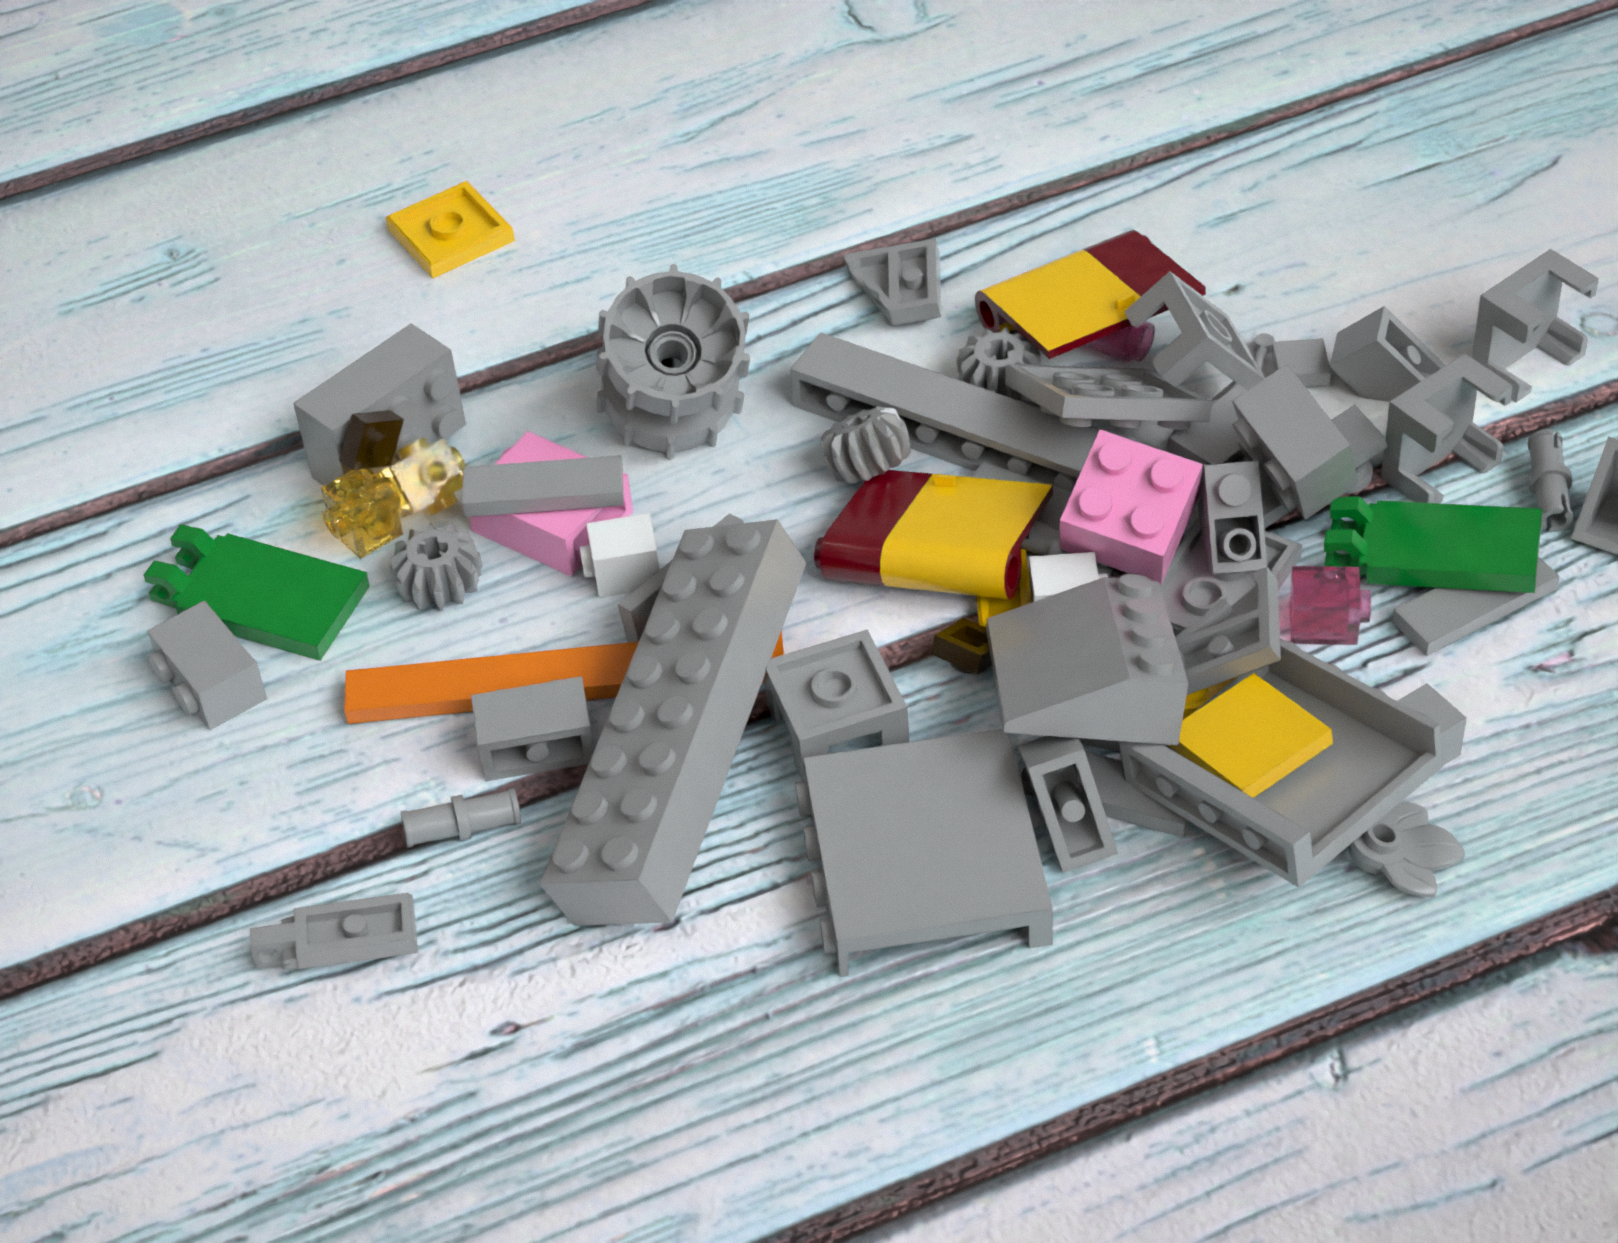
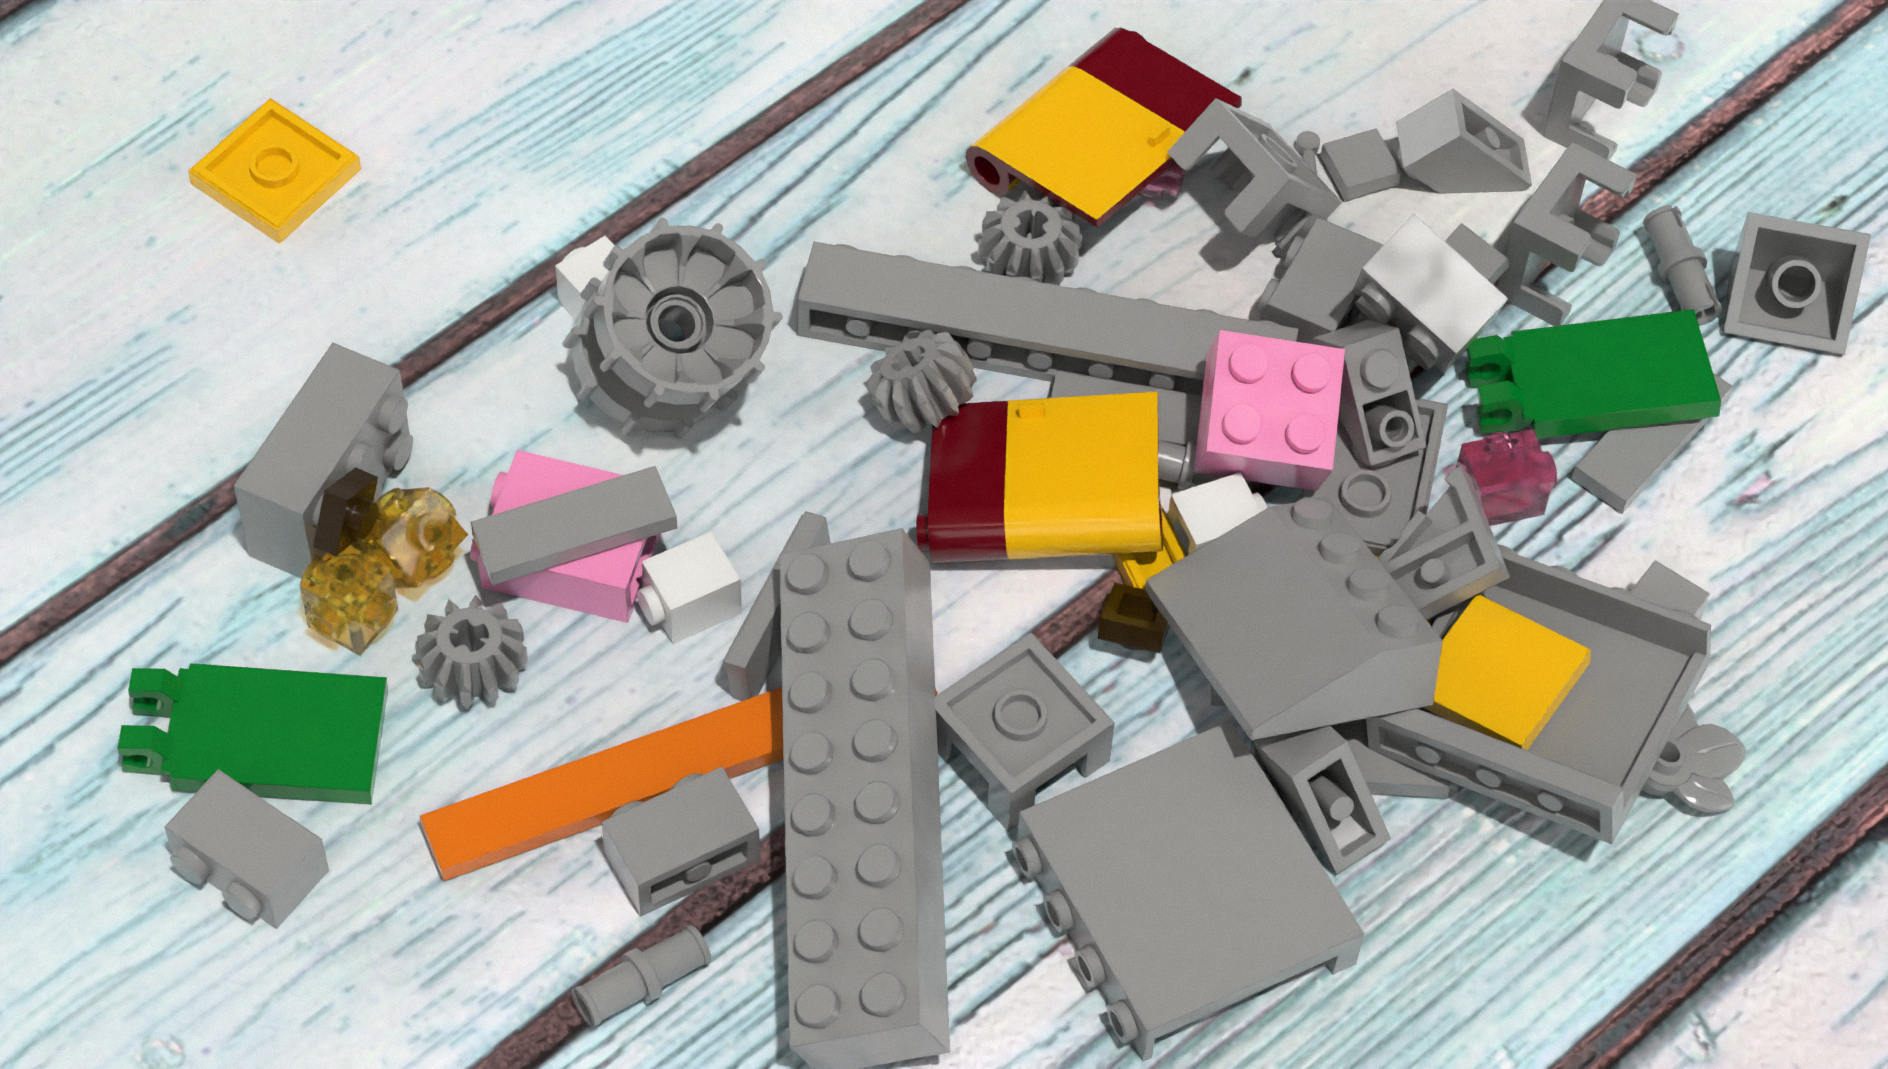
camera: 25 degrees left, 10 degrees up
(900, 280) = (864, 141): light grey wing -> none
(1107, 393) = (1182, 264): light grey plate -> none

